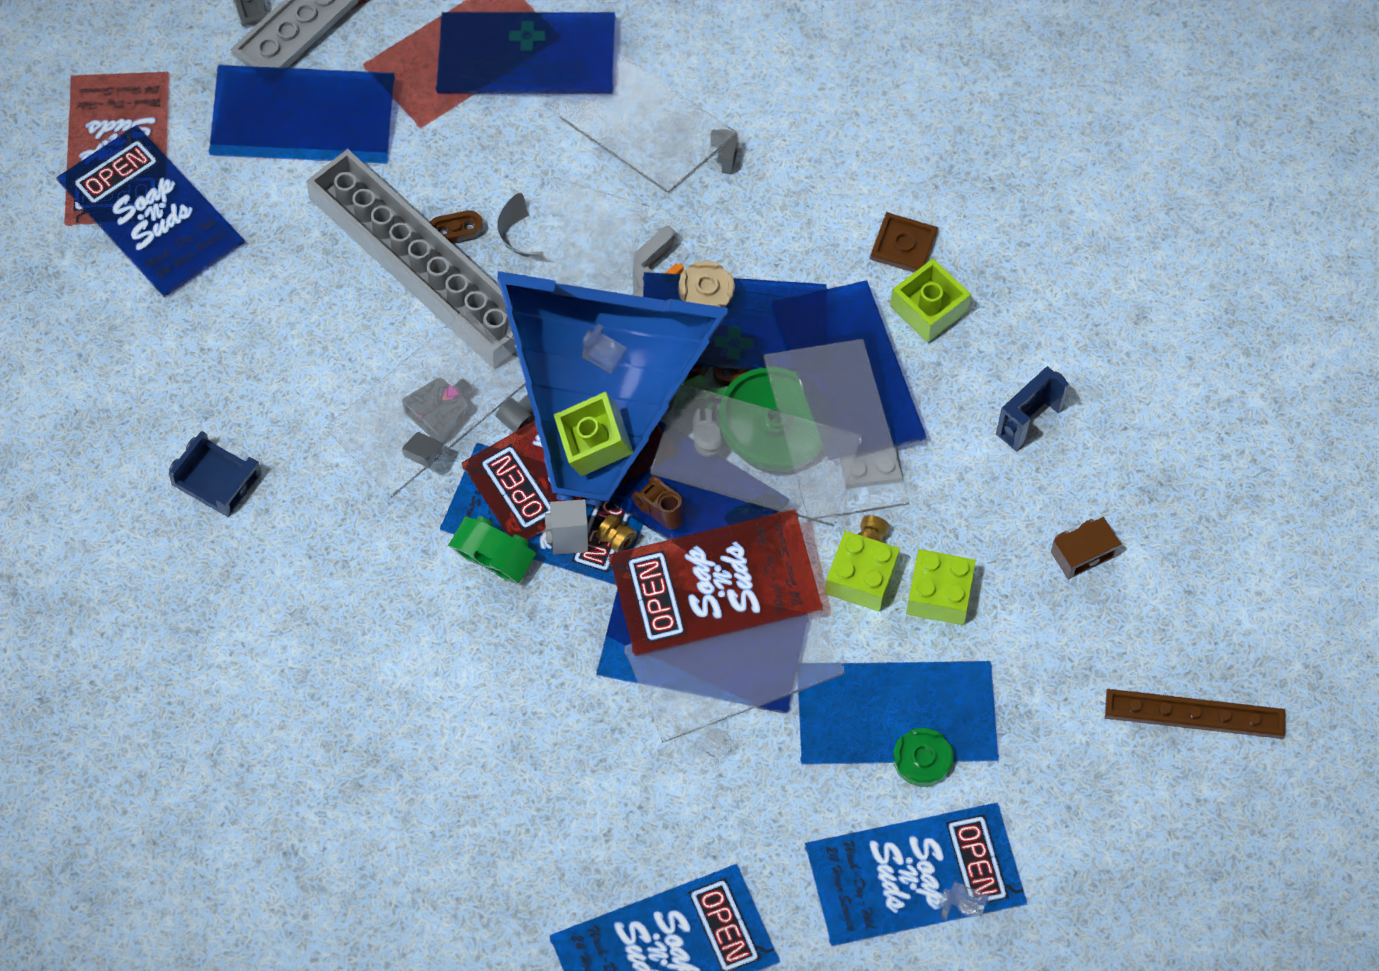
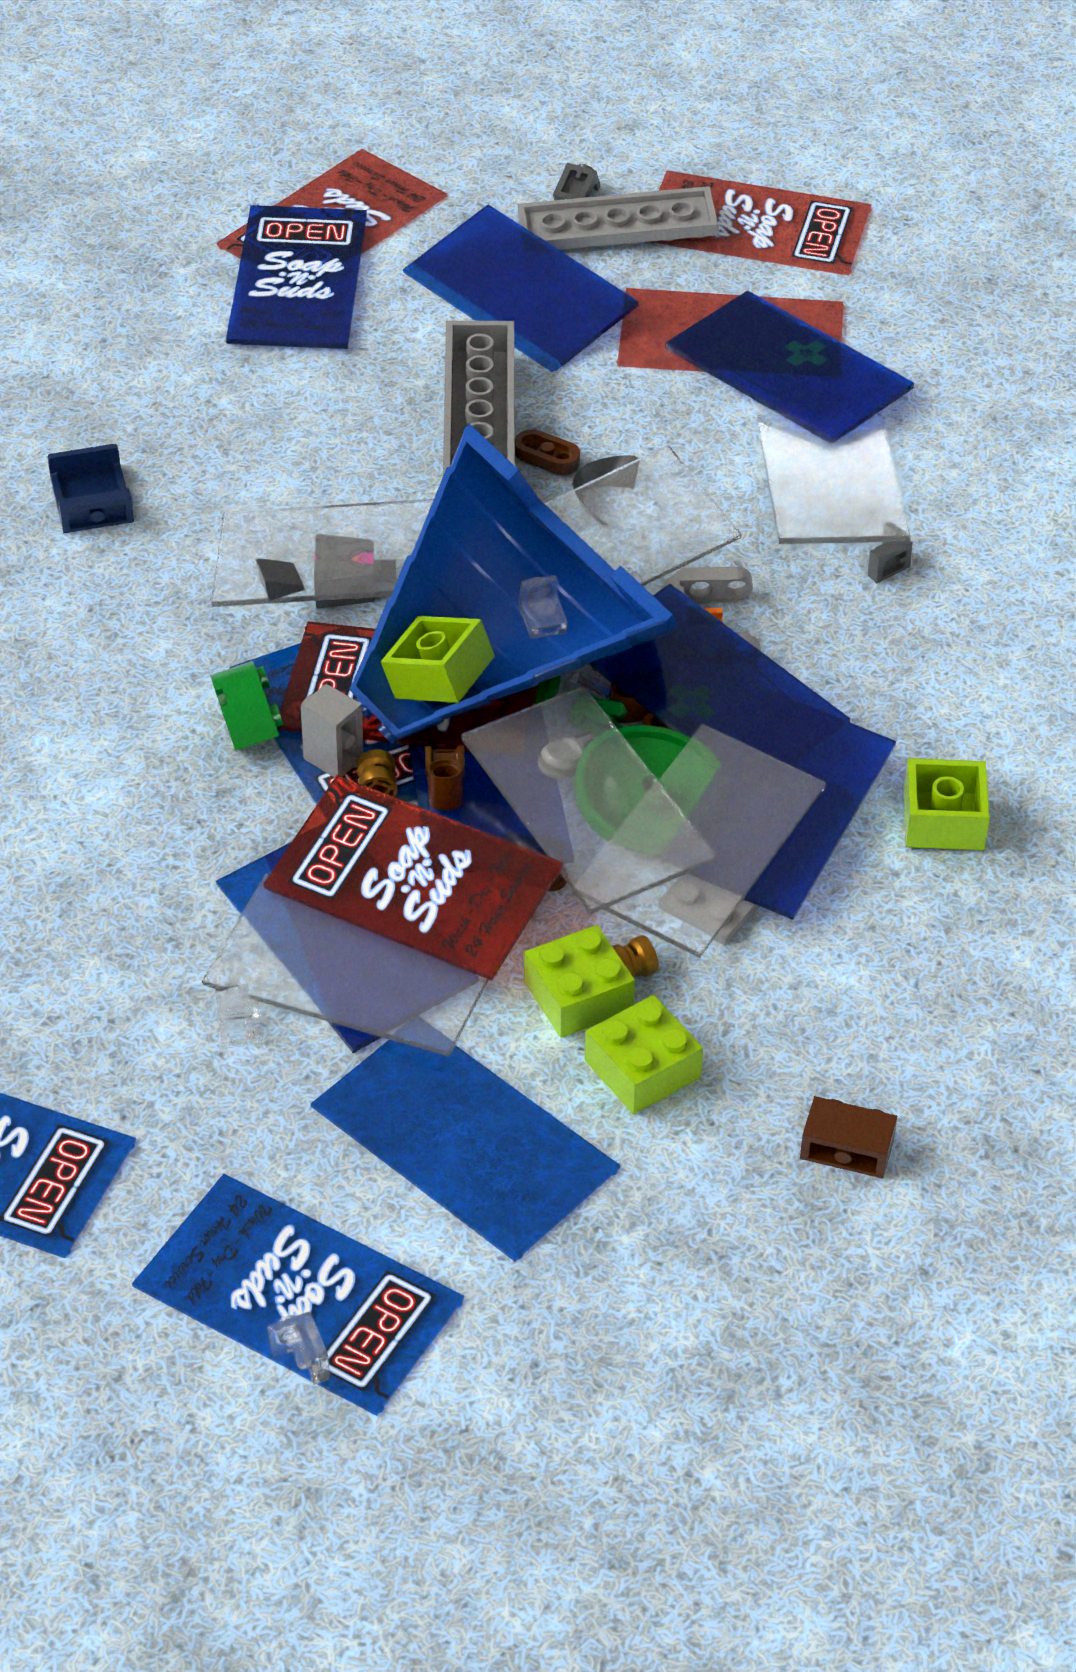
camera: 45 degrees right, 15 degrees down
(706, 284) = (716, 634): tan tile -> none
(903, 242) = (989, 740): reddish brown tile -> none
(922, 757) = (436, 1191): green tile -> none
(1046, 388) = (938, 958): dark blue panel -> none
(1194, 713) = (788, 1389): reddish brown tile -> none

